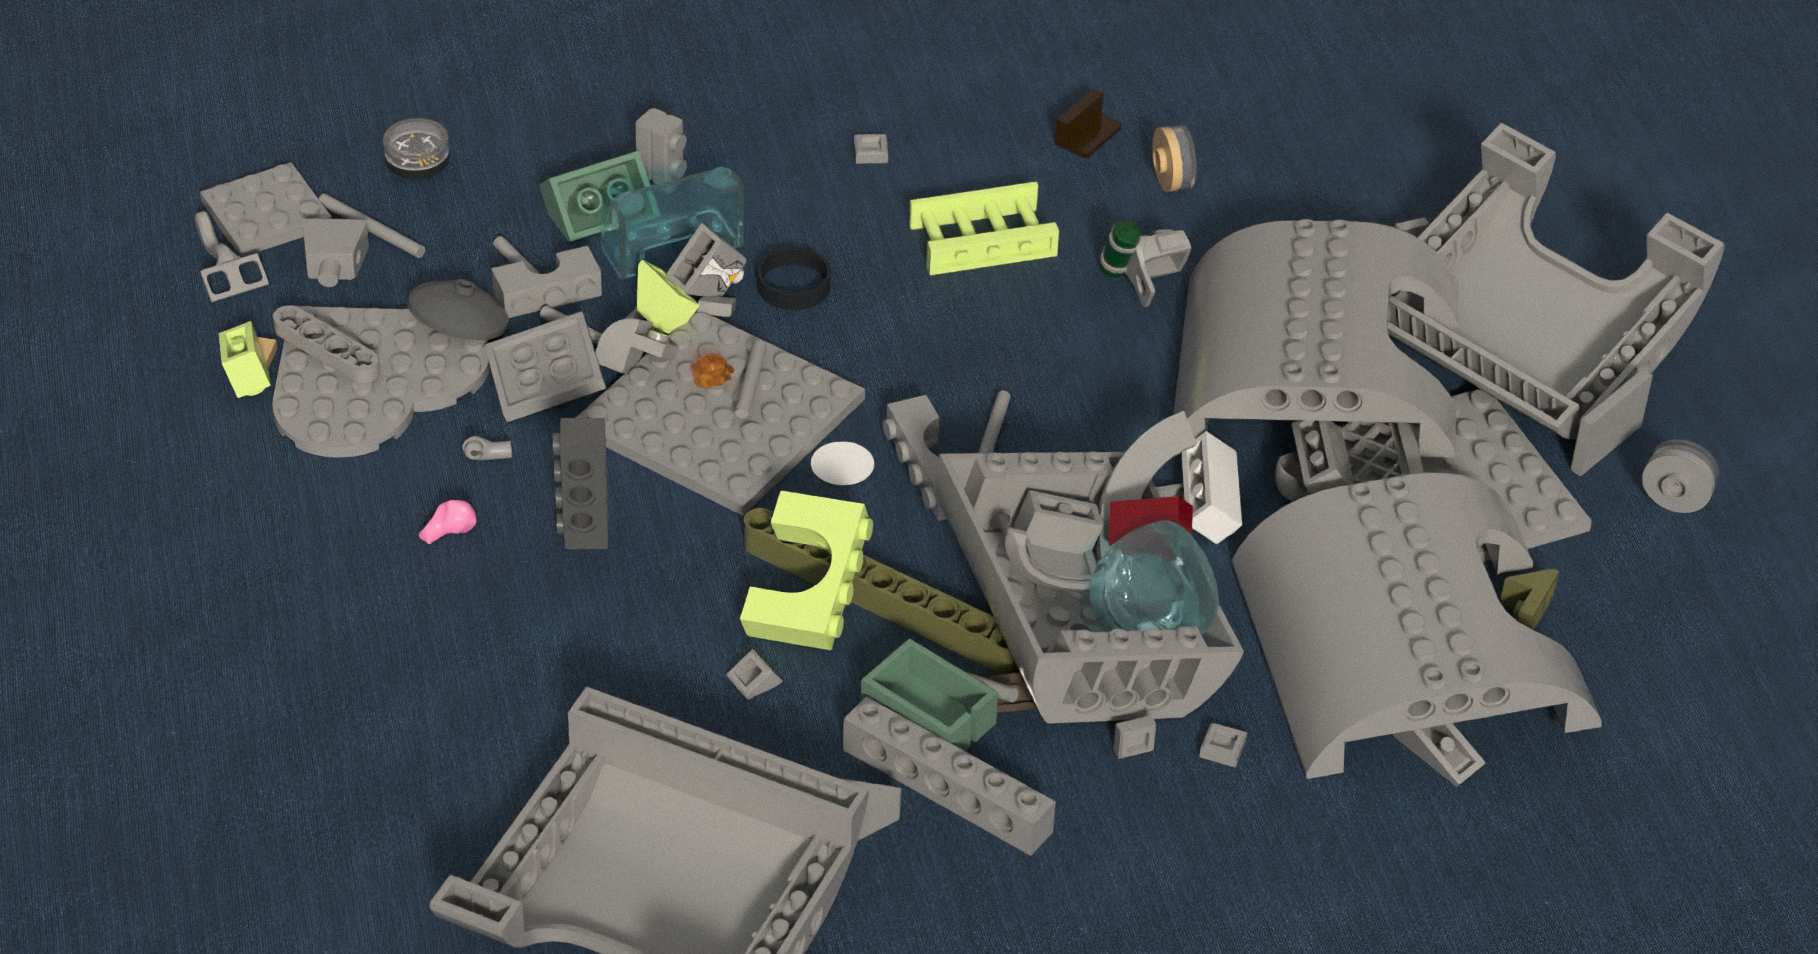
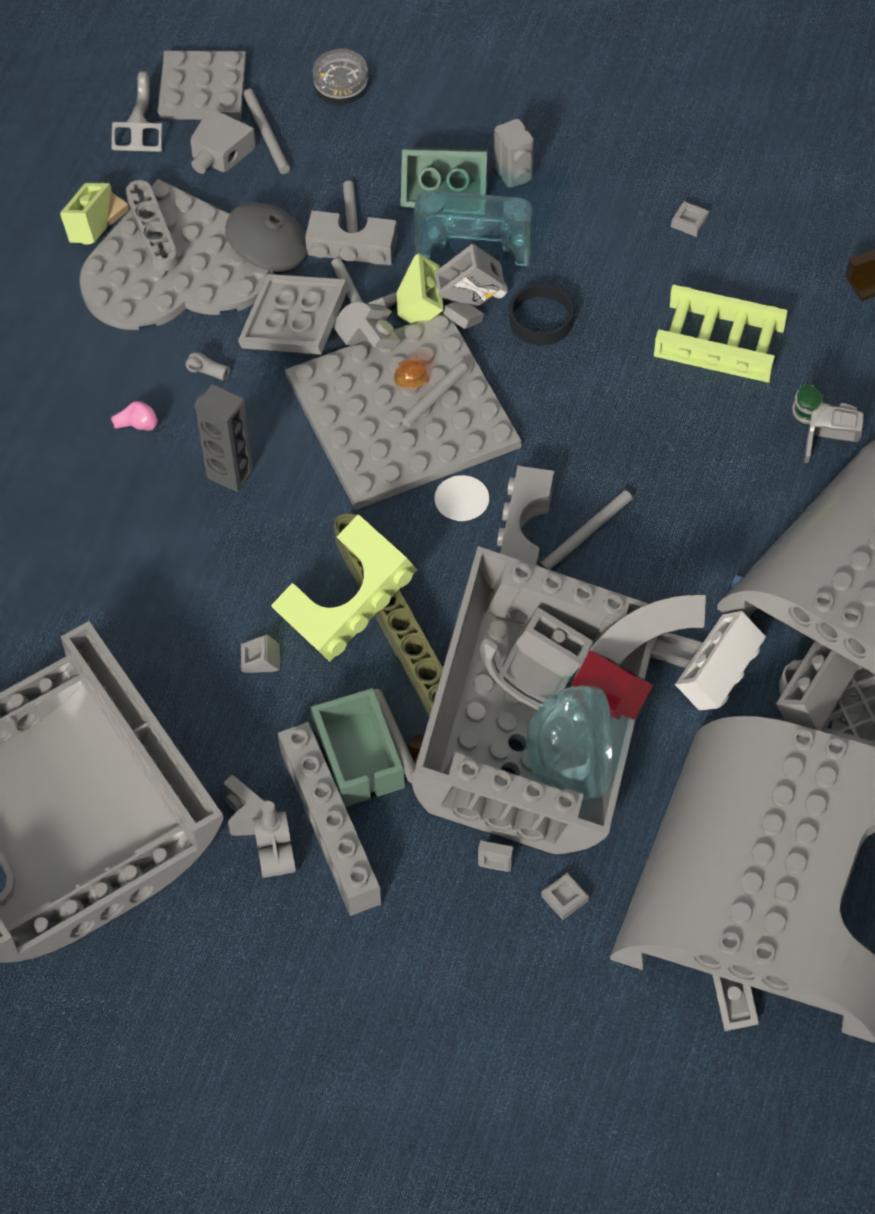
camera: 35 degrees right, 15 degrees up
(905, 809) = (273, 842): none -> light grey beam

